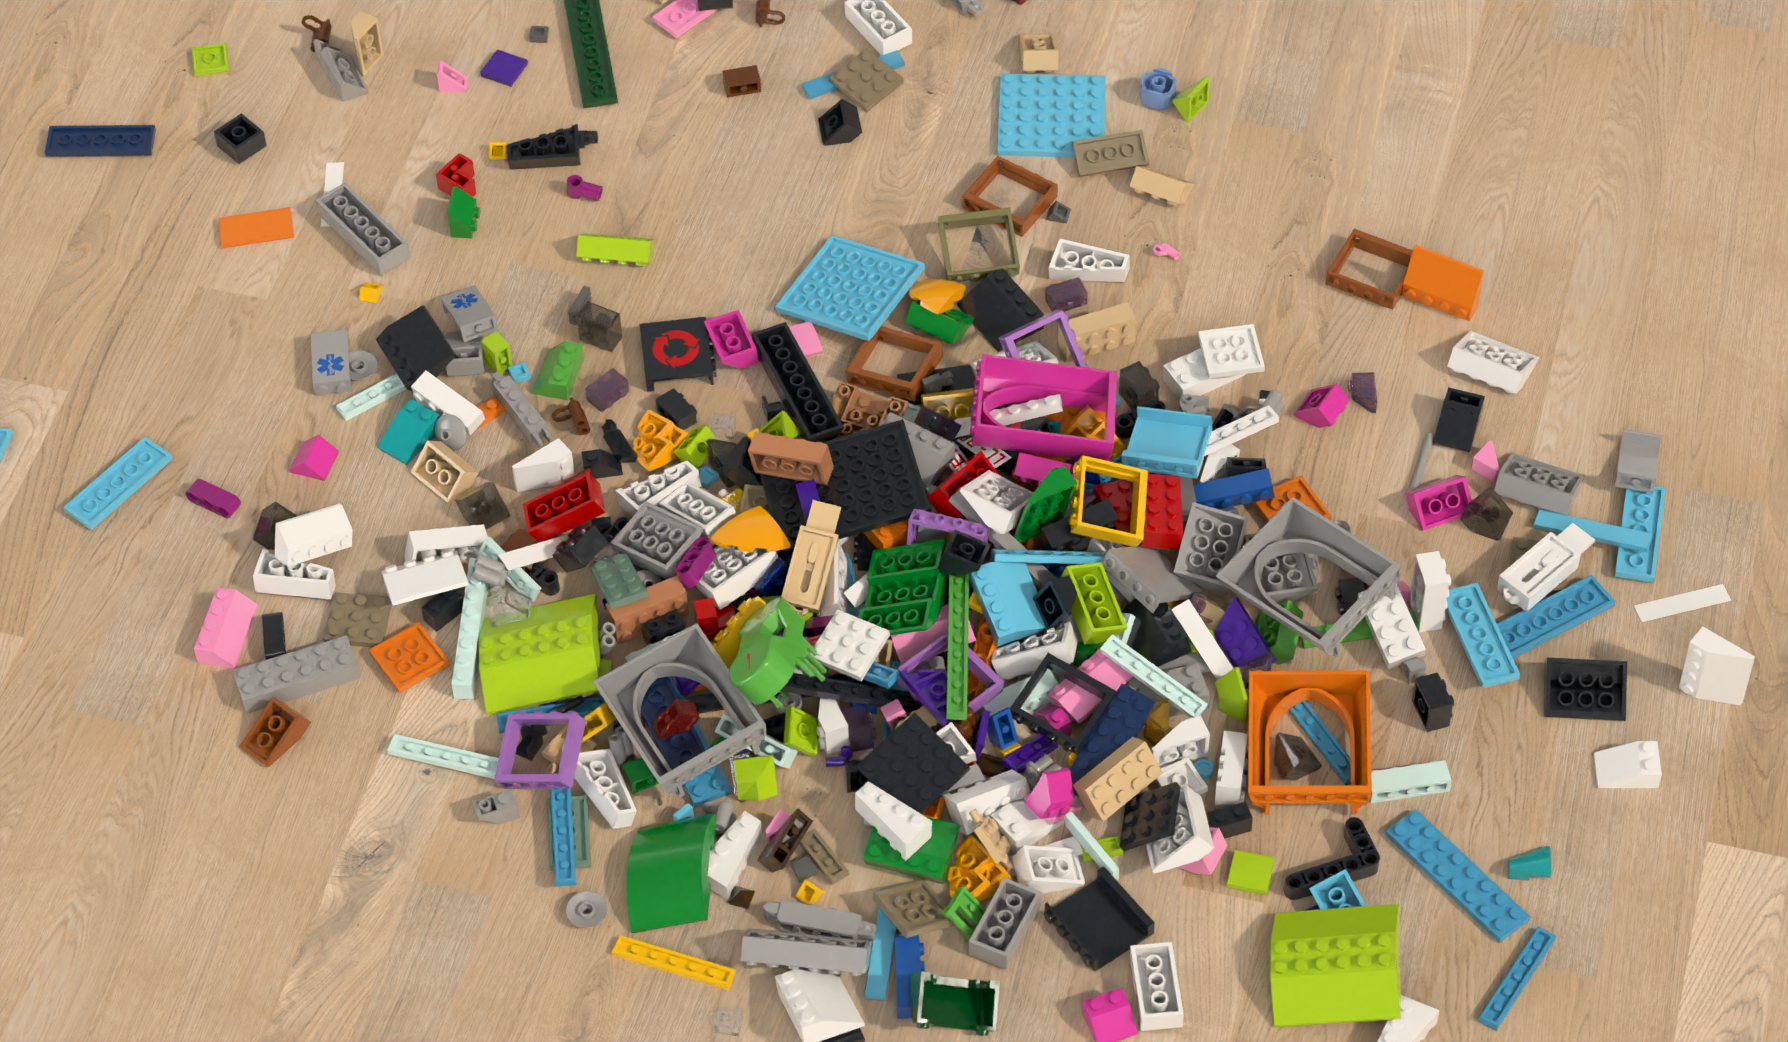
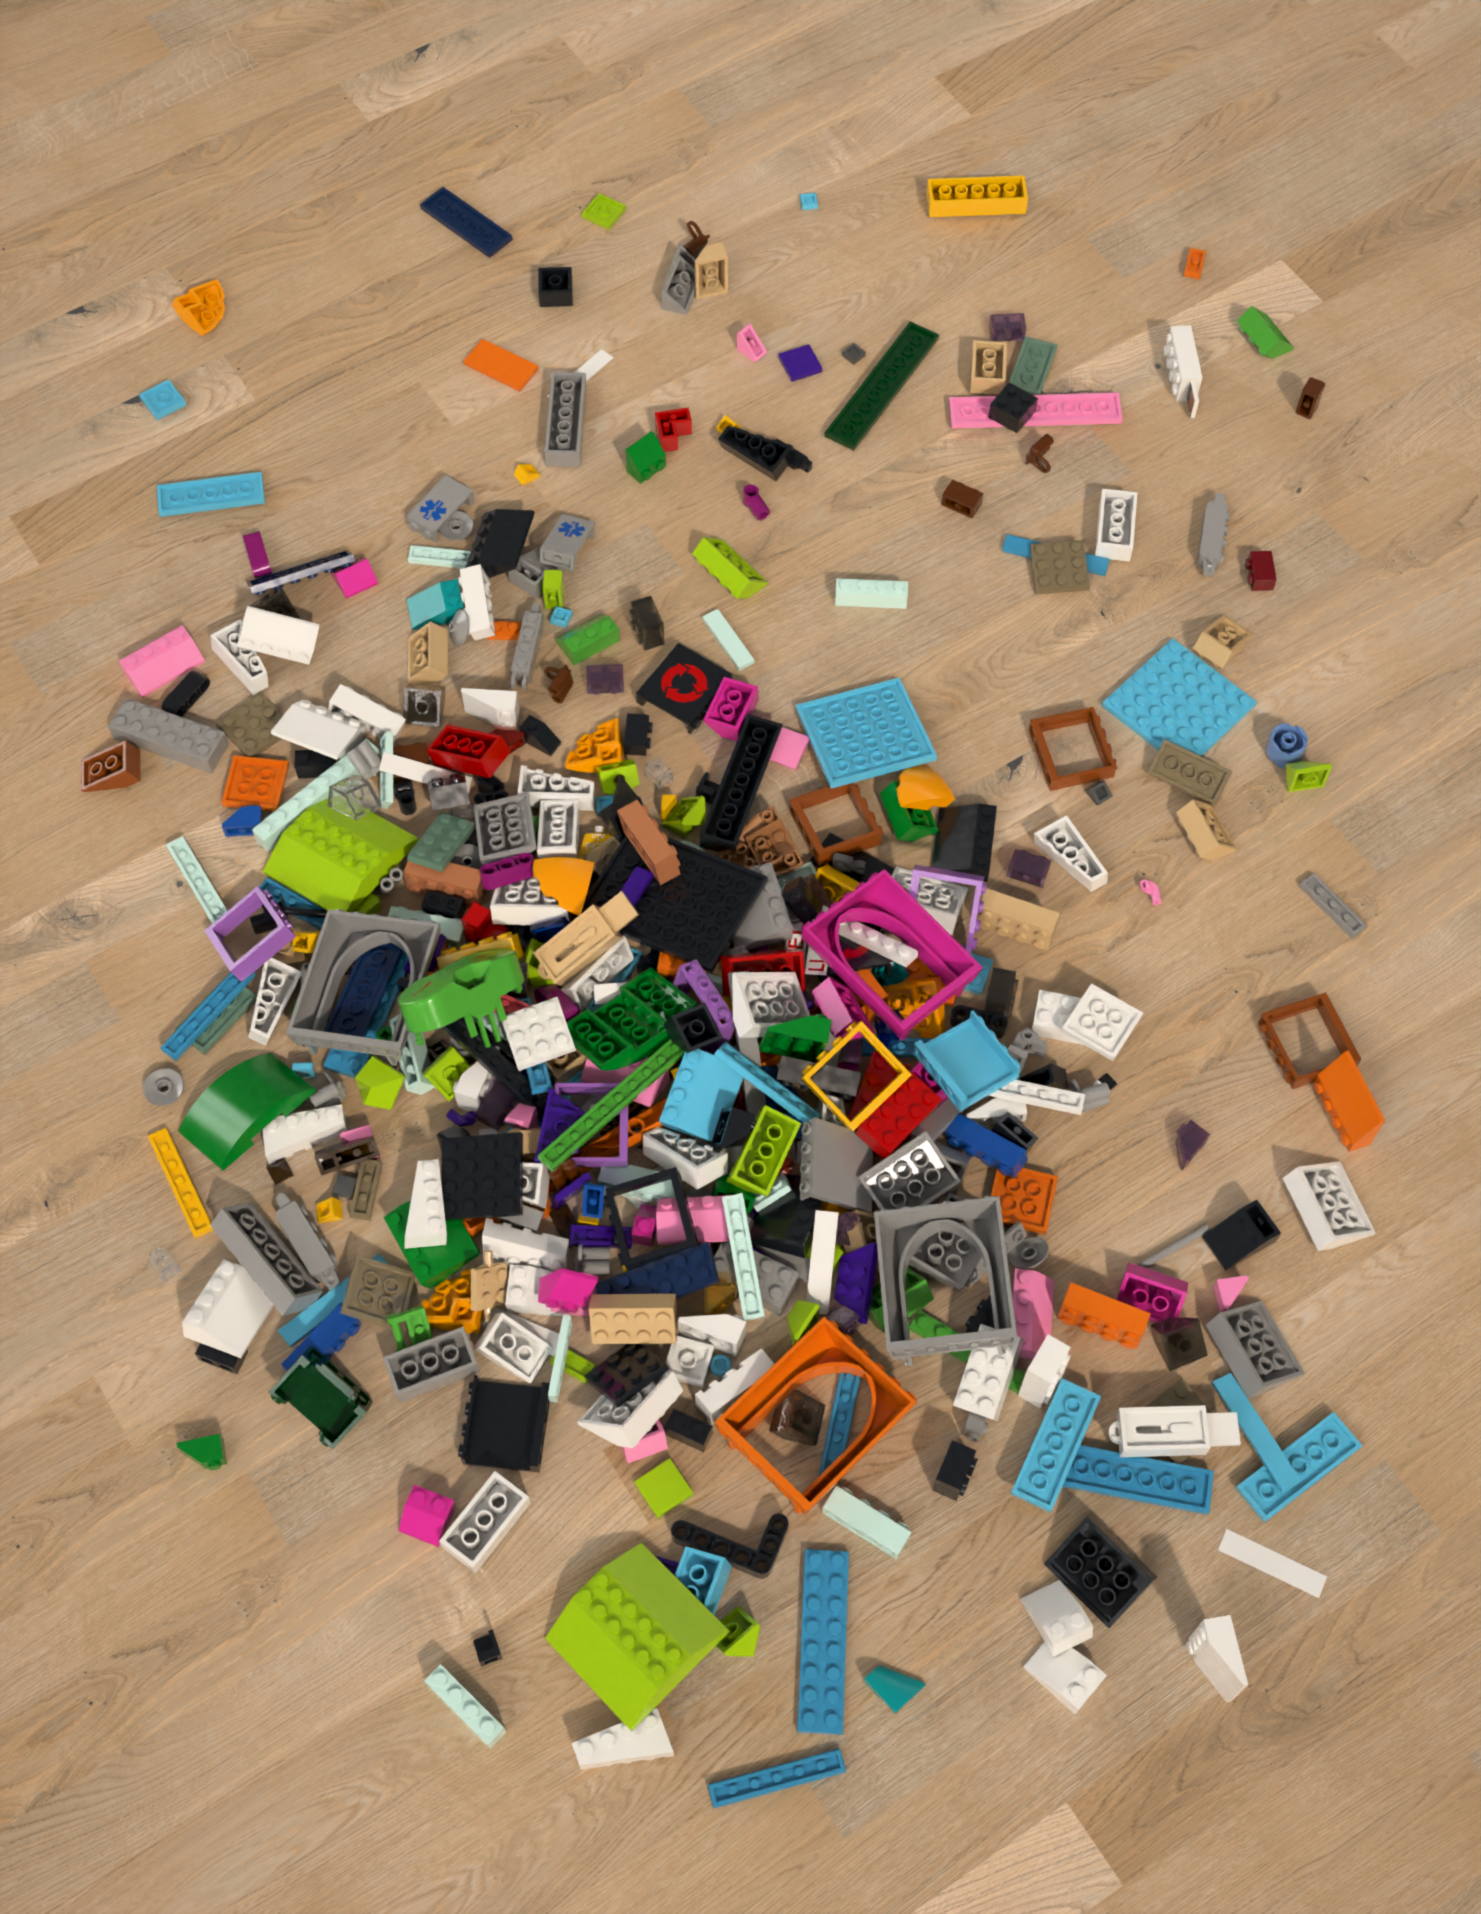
camera: 40 degrees right, 10 degrees up
(269, 483) = (295, 573): none -> plate
(435, 688) = (243, 821): none -> blue slope
(497, 808) = (186, 953): light grey slope -> none
(580, 301) = (659, 593): dark grey tile -> none
(617, 442) = (569, 728): black hinge -> none
(670, 299) = (728, 640): none -> light aqua tile
(676, 719) = (366, 988): clear red slope -> none
(746, 191) = (871, 593): none -> light aqua brick
(840, 124) = (1001, 589): black slope -> none
(975, 219) = (1012, 745): olive window -> none
(1296, 173) = (1332, 905): none -> light grey tile
(1322, 406) = (1139, 1129): dark pink slope -> none
(1409, 907) = (742, 1634): none -> lime slope
(1425, 534) = (1103, 1316): none -> orange brick
(1590, 735) = (1058, 1617): none -> white slope
(1638, 460) = (1361, 1401): light grey panel -> none

